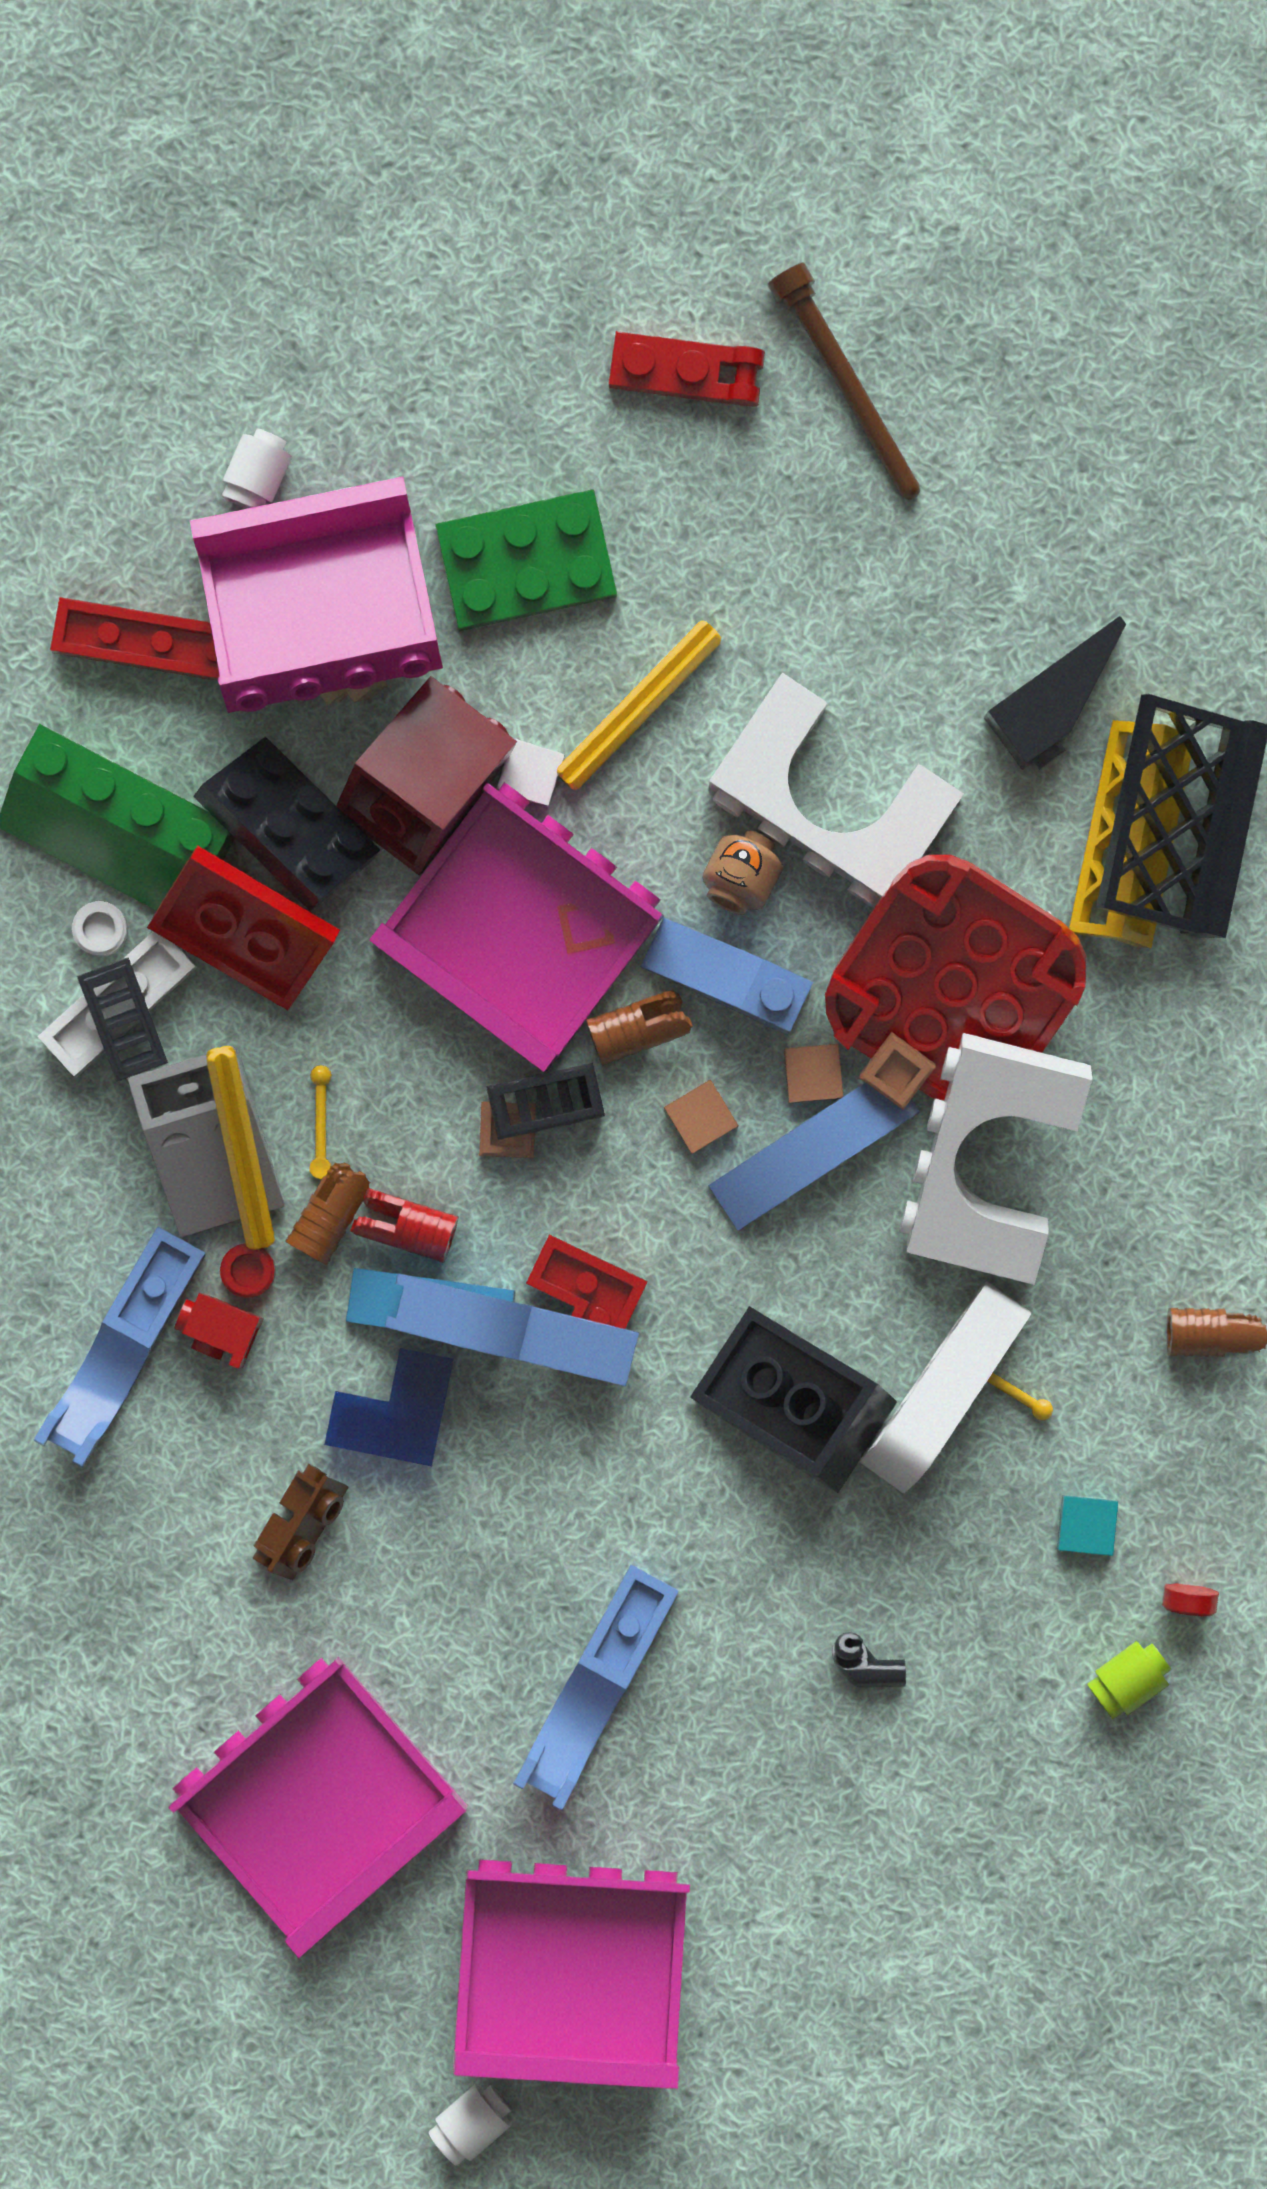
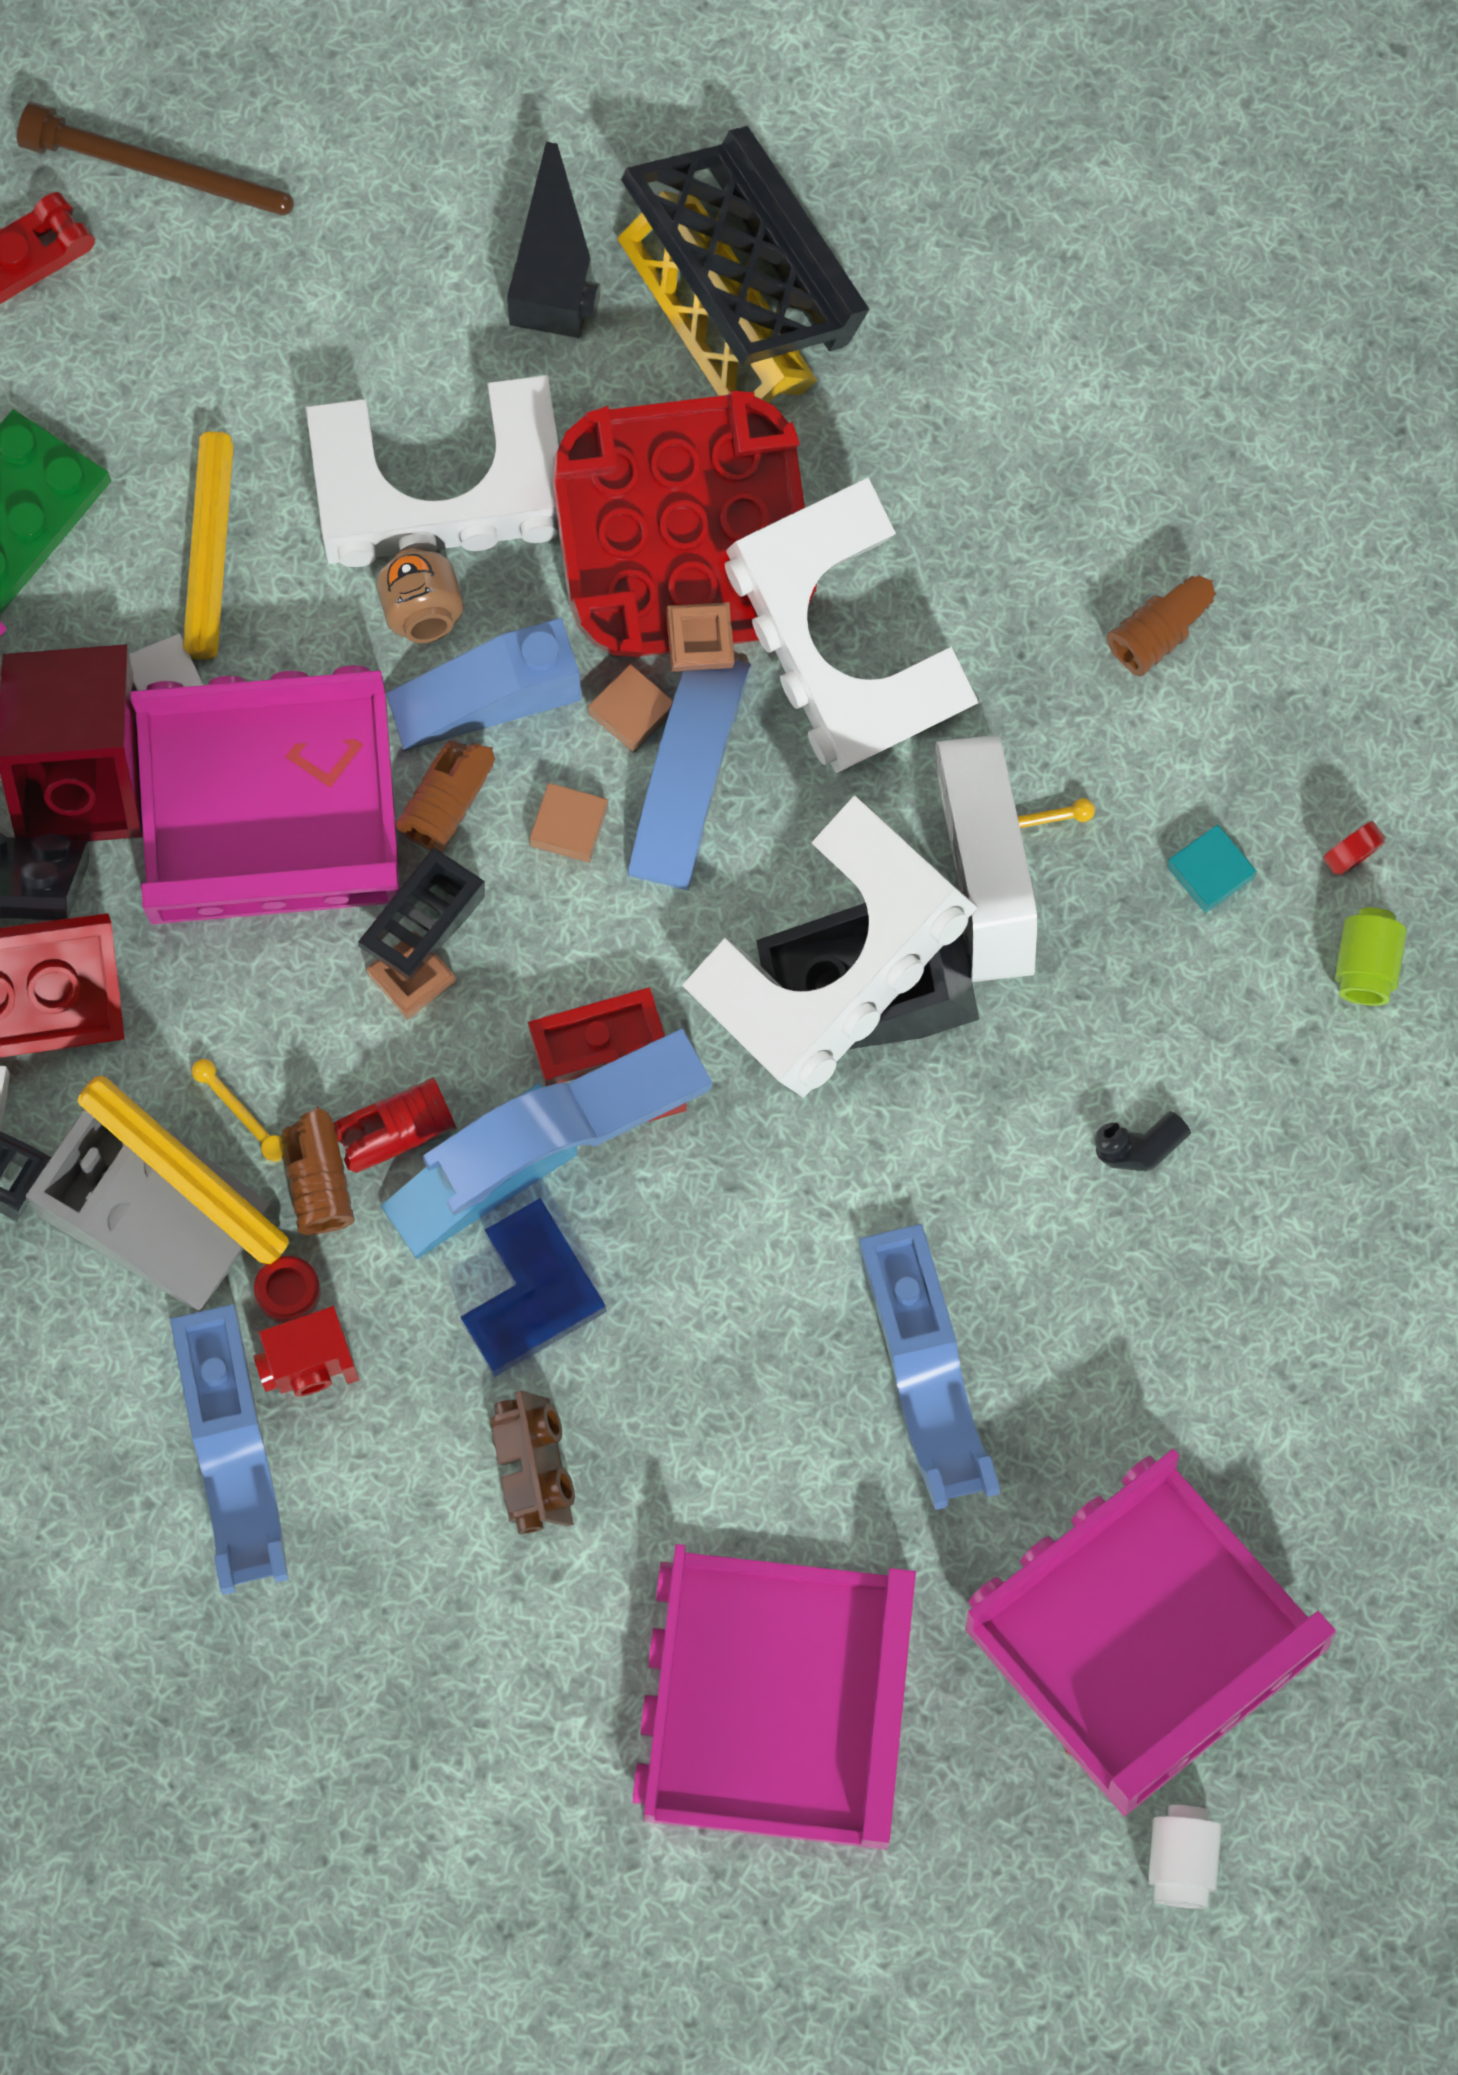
camera: 40 degrees left, 15 degrees down
(843, 1401) = (910, 919): none -> white arch

